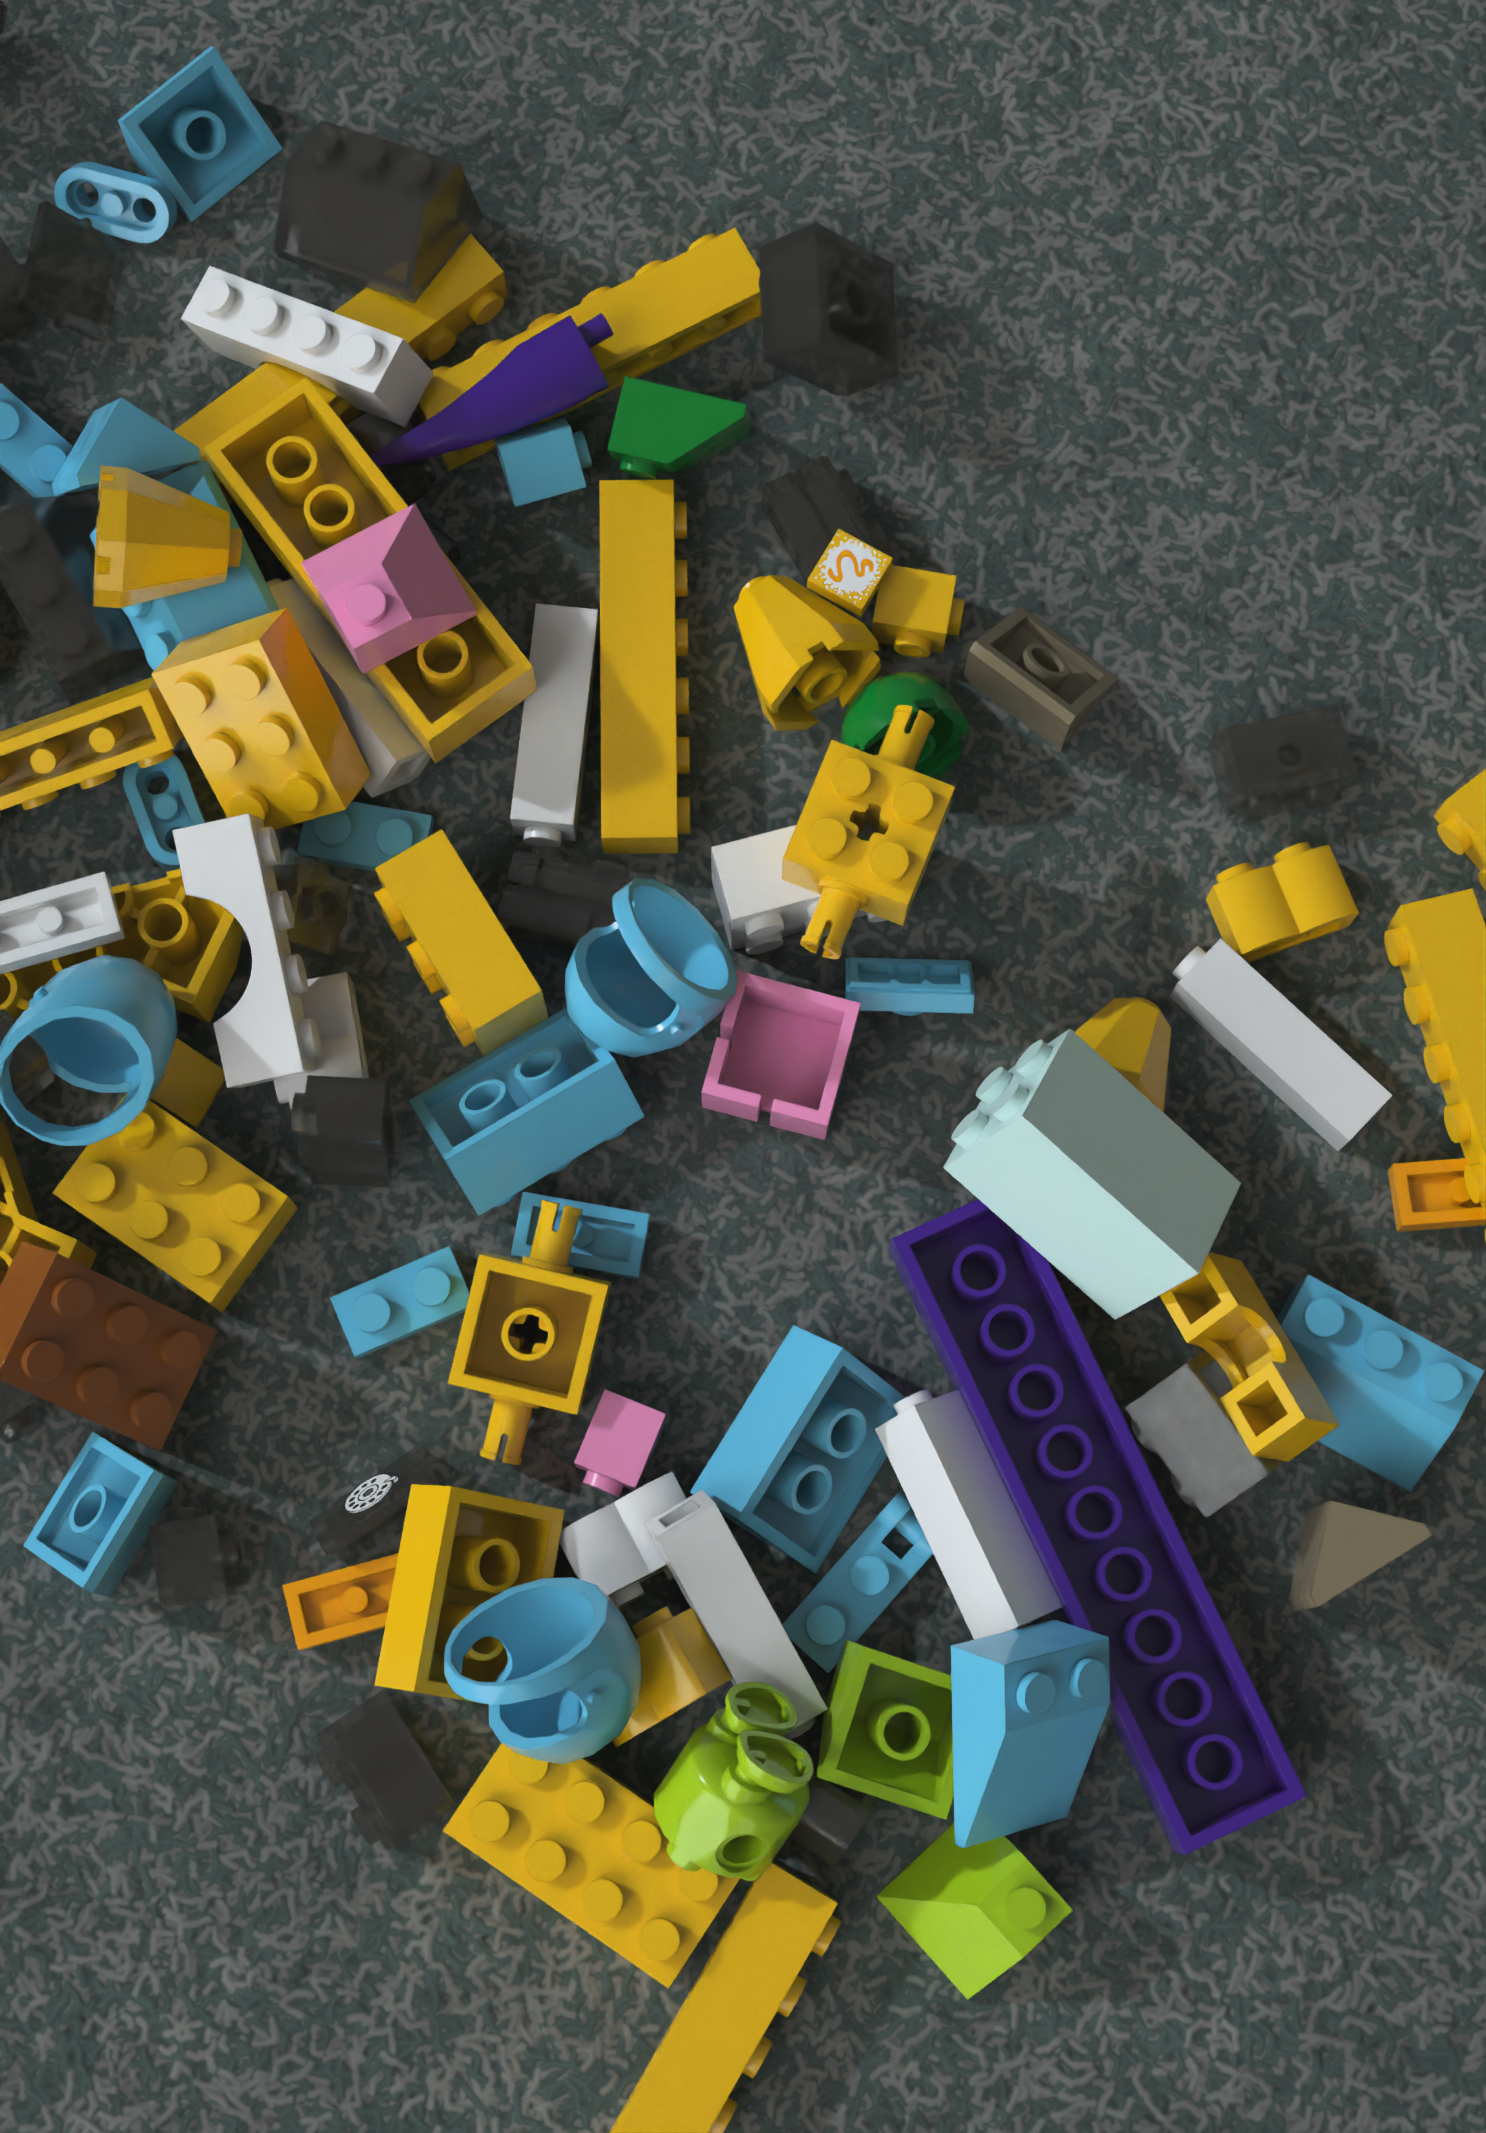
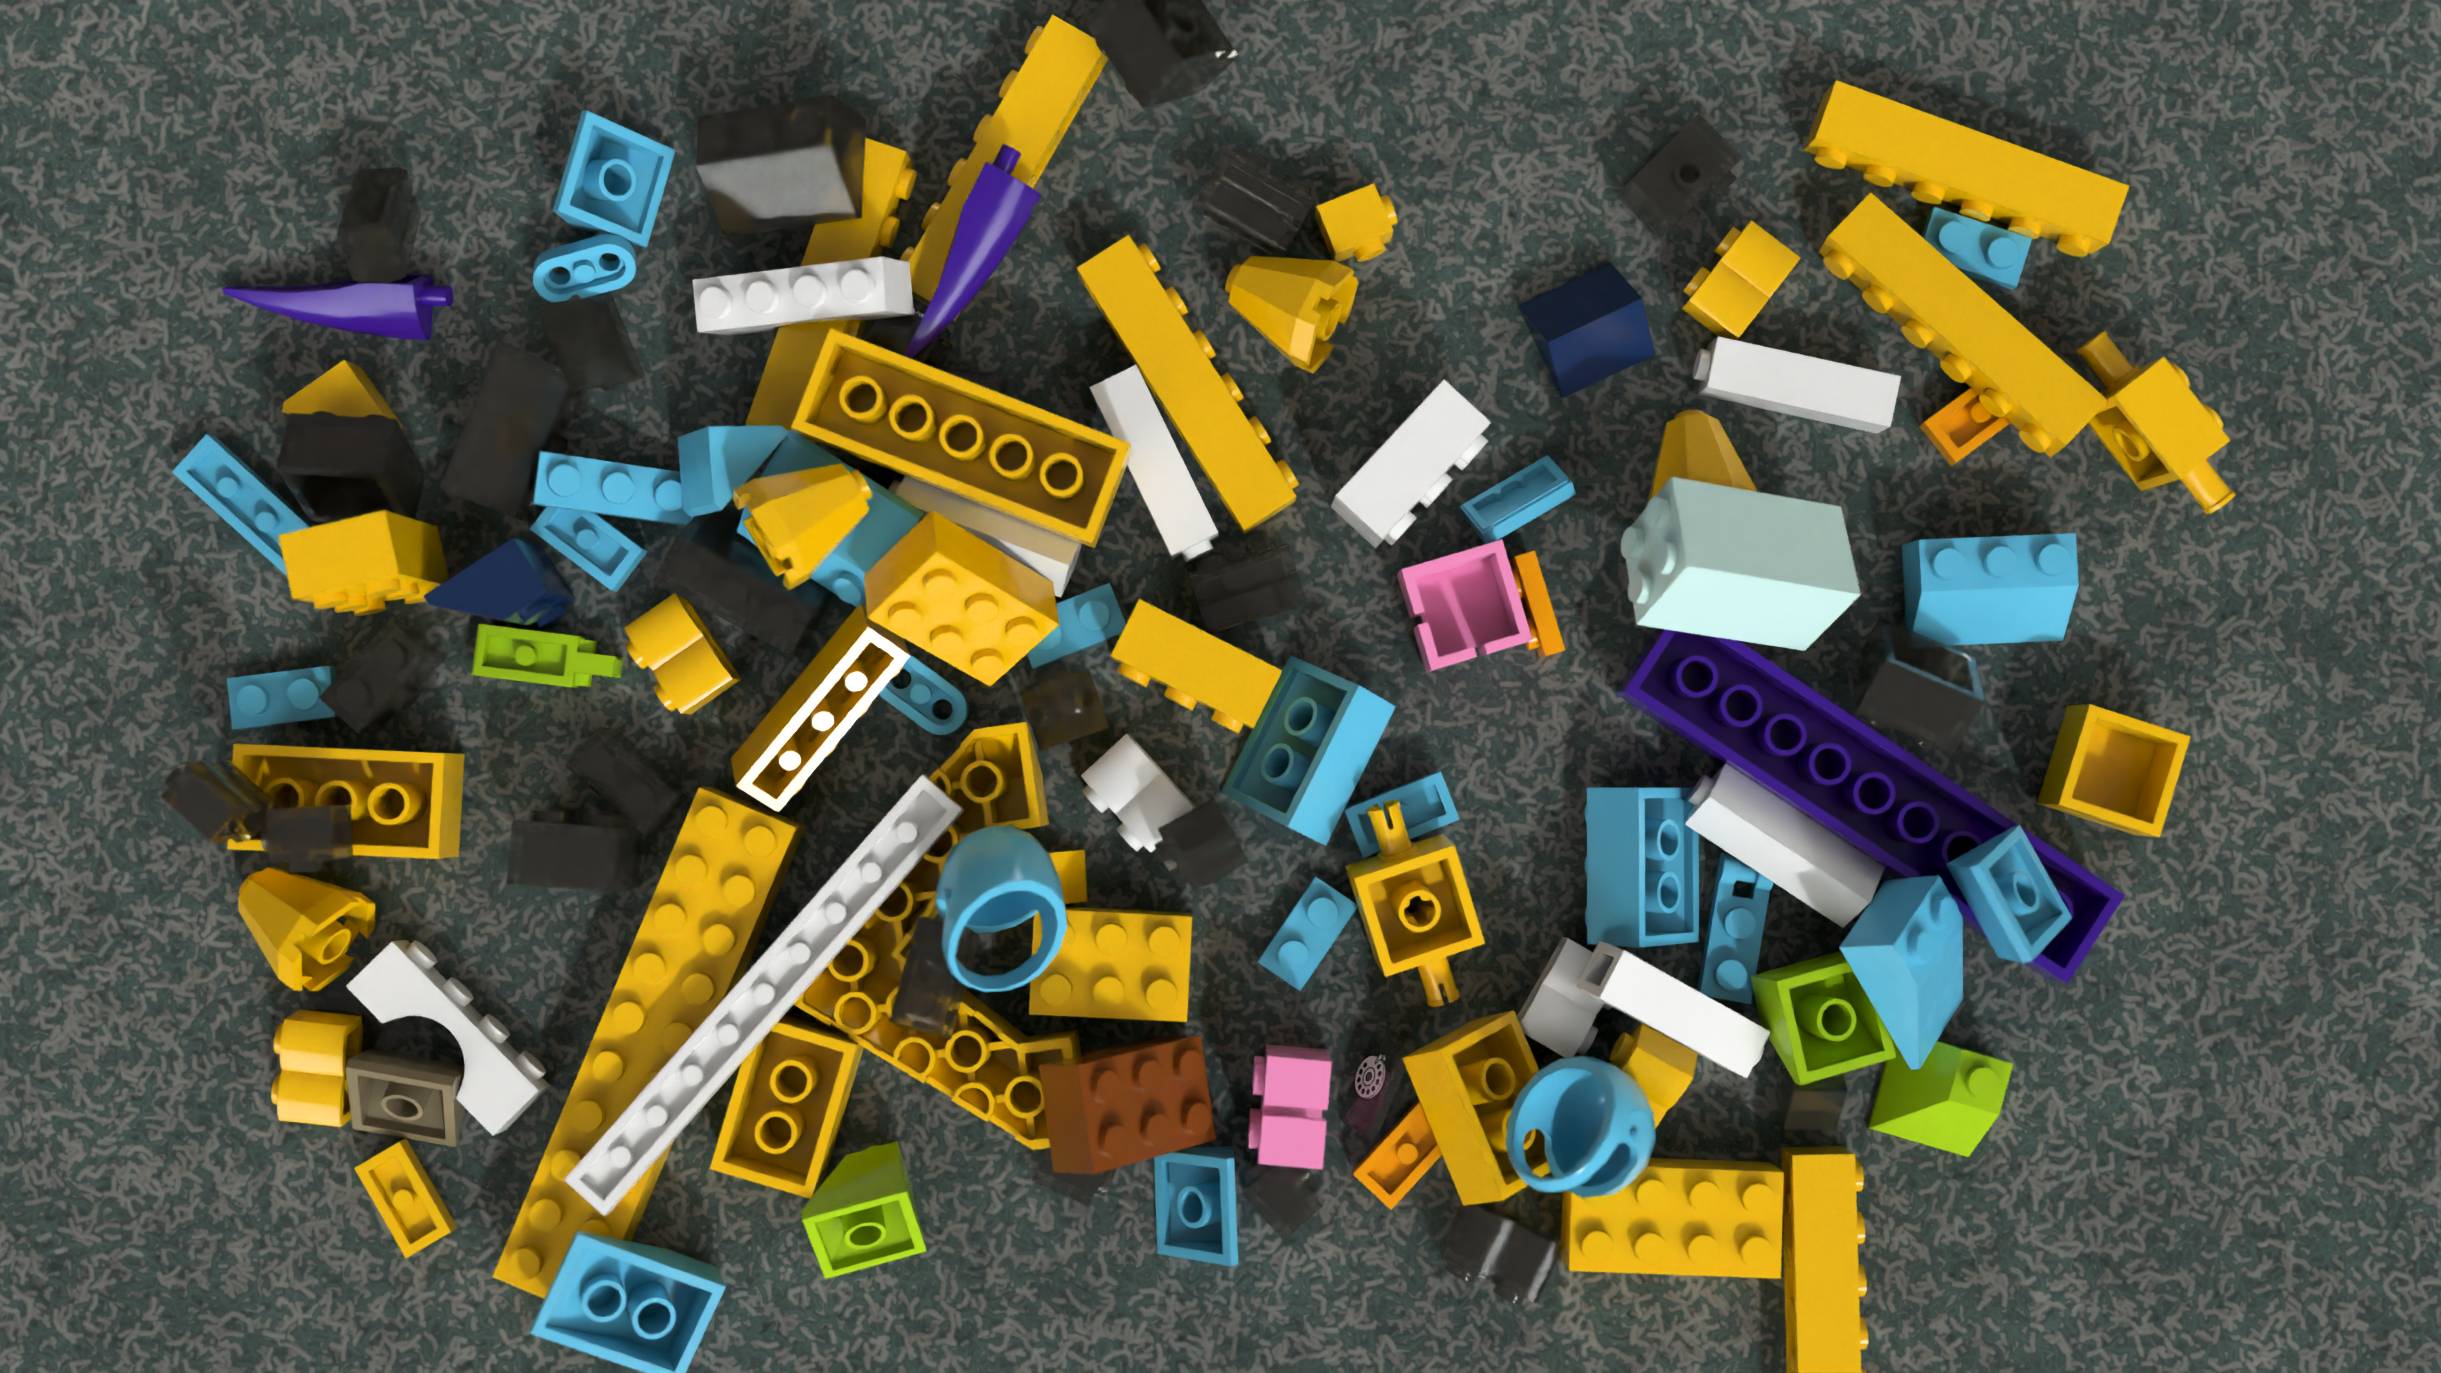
camera: 30 degrees left, 10 degrees up
(261, 1463) = (1293, 1094): none -> bright pink piece
(267, 1028) = (1012, 720): white arch -> none
(388, 588) = (993, 450): bright pink slope -> none
(543, 461) = (1026, 277): medium azure brick -> none
(619, 1444) = (1518, 940): bright pink brick -> none
(649, 973) = (1347, 611): medium azure piece -> none
(672, 428) = (1104, 200): green slope -> none
(736, 1786) = (1749, 1125): lime piece -> none
(849, 572) = (1300, 228): tile -> none
(860, 792) = (1466, 392): yellow brick -> none
(863, 1077) = (1537, 605): none -> light orange plate
(872, 711) = (1403, 310): green cylinder -> none
(1037, 676) = (1472, 218): dark tan slope -> none
(1093, 861) = (1589, 329): none -> dark blue slope
(1179, 1709) = (2011, 895): none -> medium azure slope
(1272, 1391) = (1951, 641): yellow arch -> none
(1343, 1547) = (2053, 716): dark tan slope -> none
(1379, 1659) = (2113, 770): none -> yellow piece

